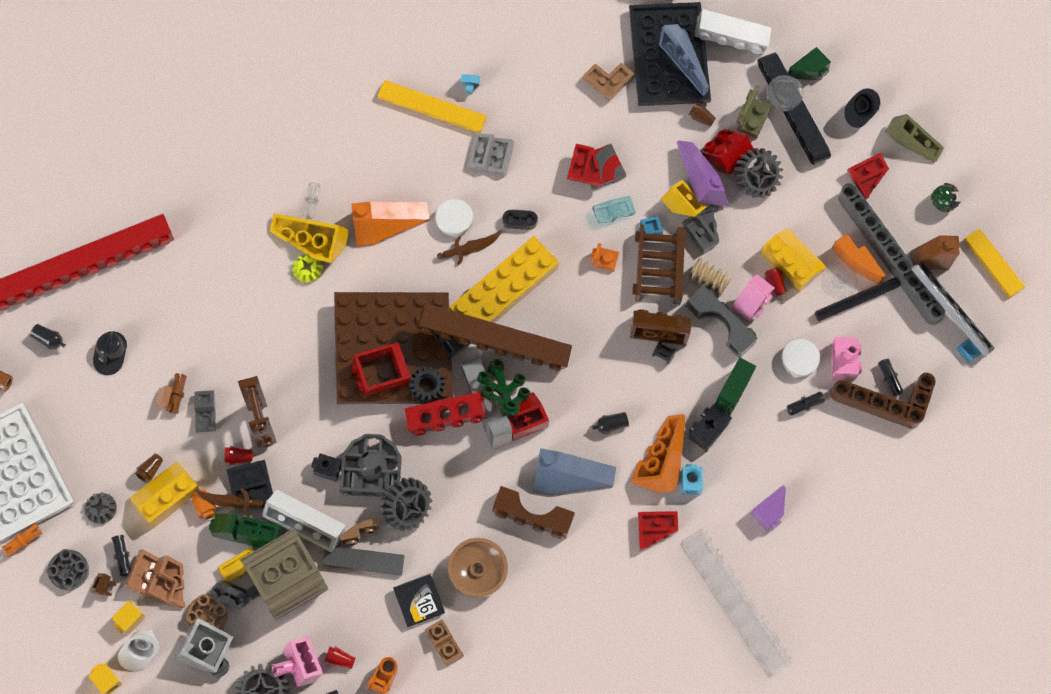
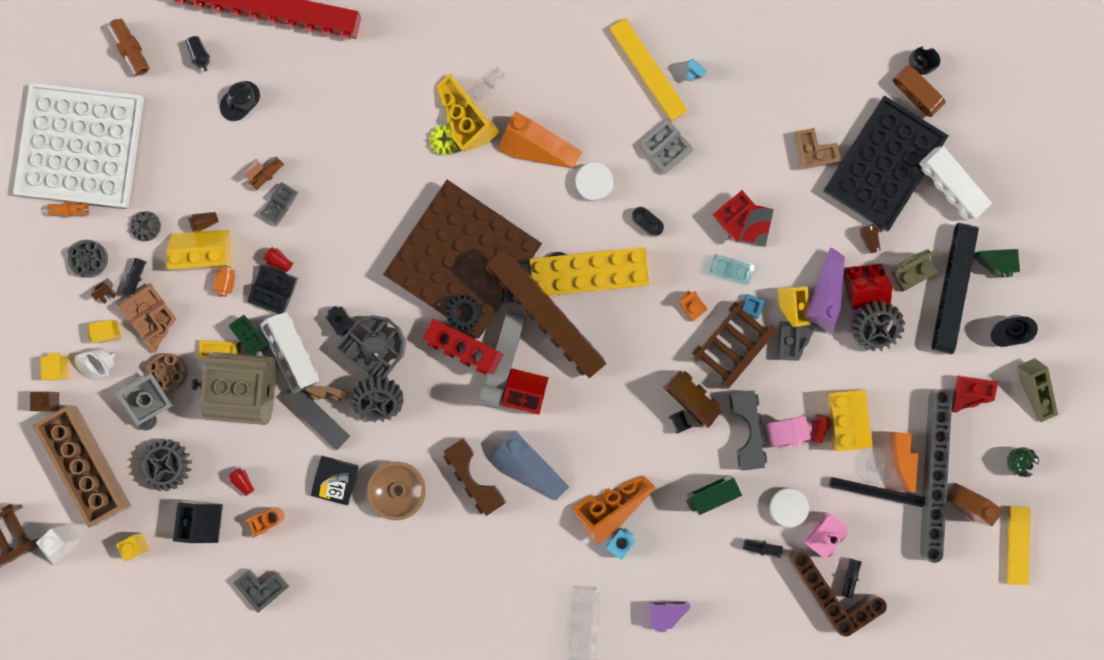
camera: 45 degrees right, 15 degrees up
(224, 526) = (225, 312): dark green slope -> none
(231, 591) = (194, 368): black beam -> none
(232, 501) = (246, 296): reddish brown piece -> none
(255, 401) = (309, 239): reddish brown fence -> none
(300, 662) = (206, 464): bright pink brick -> none
(399, 363) = (415, 259): red window -> none
(444, 643) = (330, 528): medium nougat slope -> none
(470, 246) = (588, 215): reddish brown piece -> none
(507, 406) = (522, 360): dark green plant -> none
(611, 423) = (592, 449): black piece -> none
(656, 527) = (563, 559): red wing -> none
(679, 48) = (896, 166): sand blue wedge -> none
(706, 437) = (678, 514): black brick -> none
(710, 276) = (767, 385): tan piece -> none
(785, 93) = (956, 271): clear tile -> none
(953, 308) = (950, 561): tile -> none
(968, 350) = (937, 602): dark azure tile -> none

